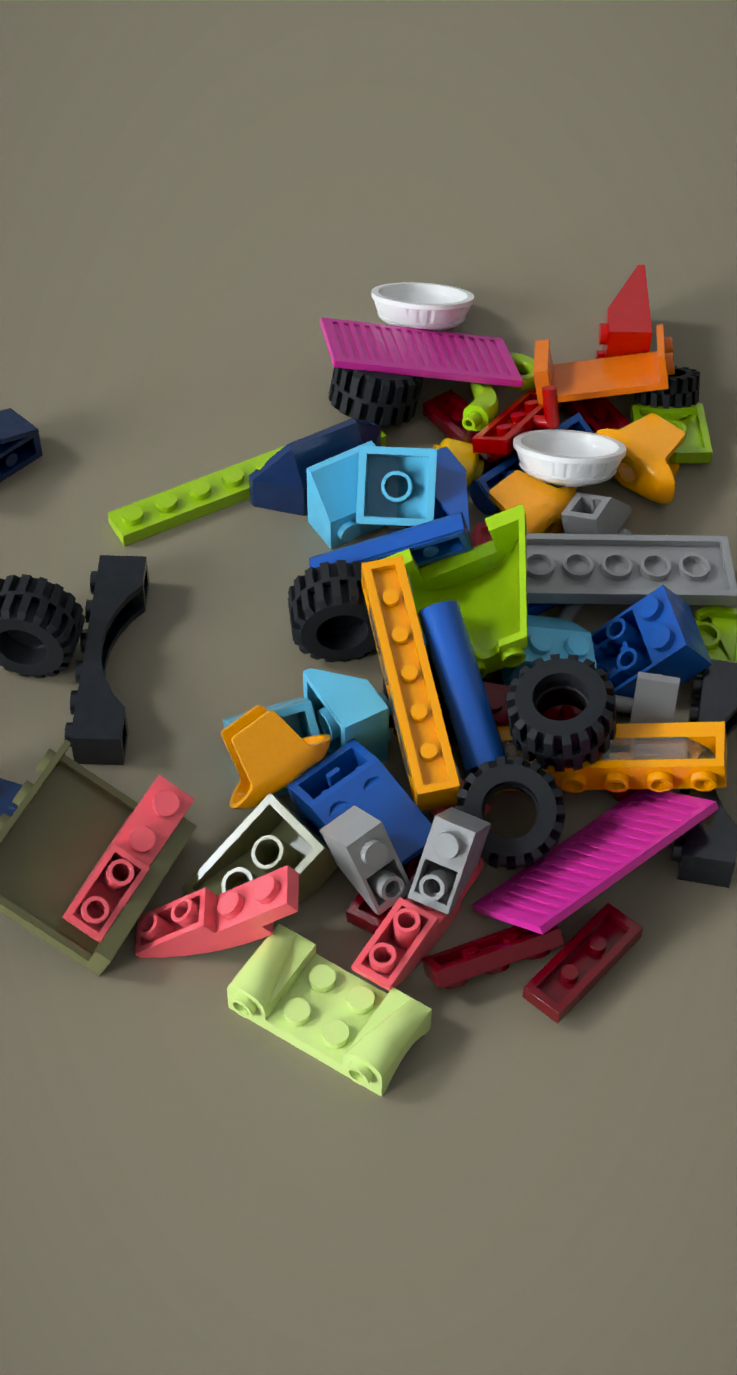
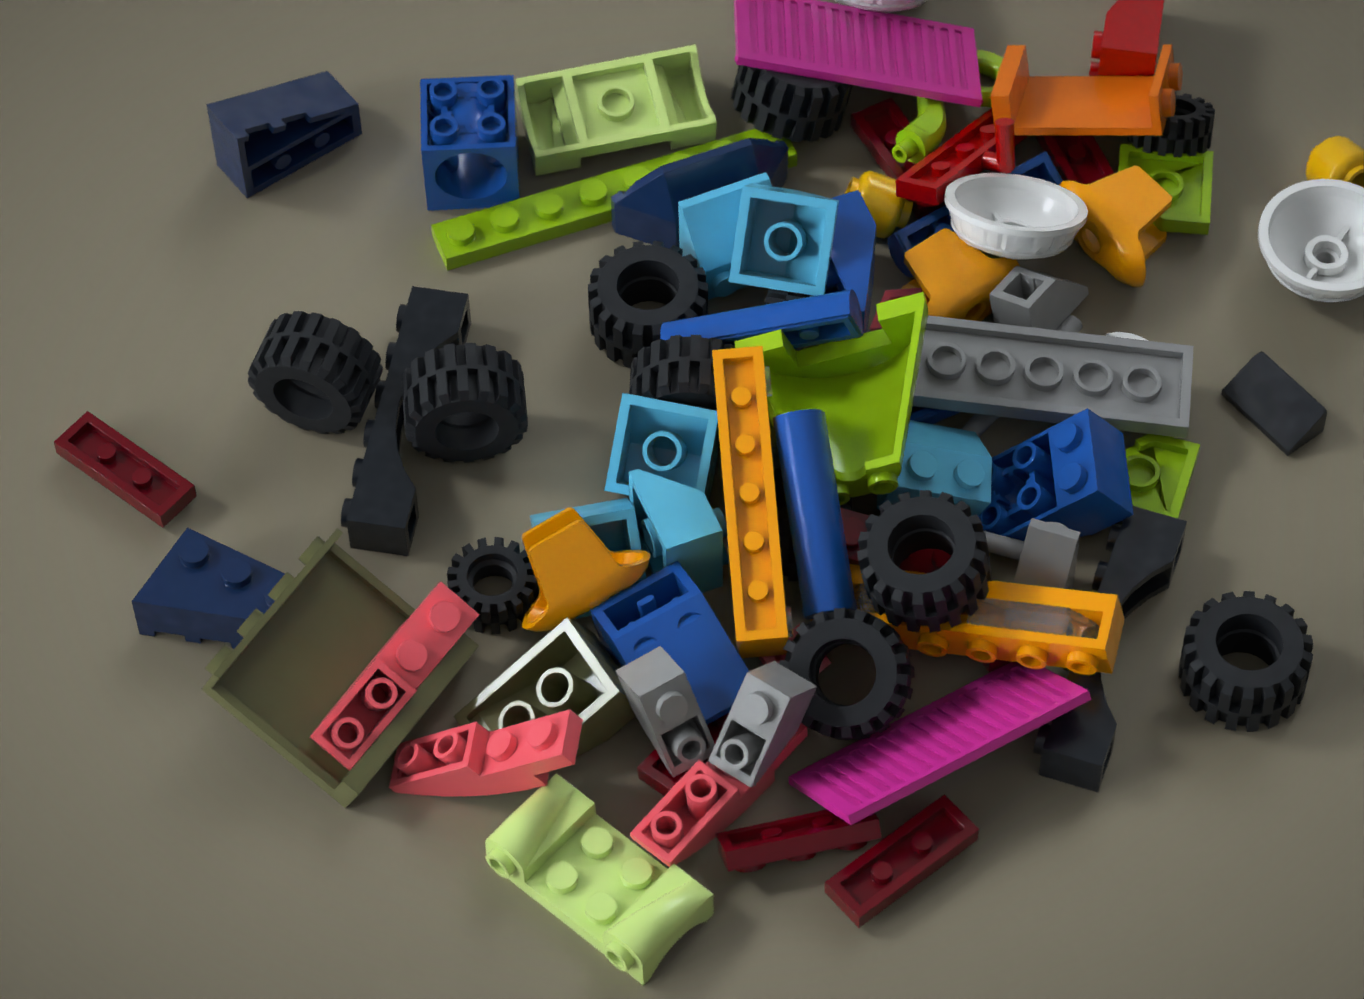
camera: 10 degrees right, 5 degrees up
(131, 446) = (469, 142): none -> blue brick
(156, 636) = (464, 403): none -> black tyre
(202, 759) = (494, 561): none -> black tyre
(239, 414) = (614, 108): none -> yellowish green piece
(282, 542) = (637, 277): none -> black tyre
(324, 643) = (663, 440): none -> medium azure slope

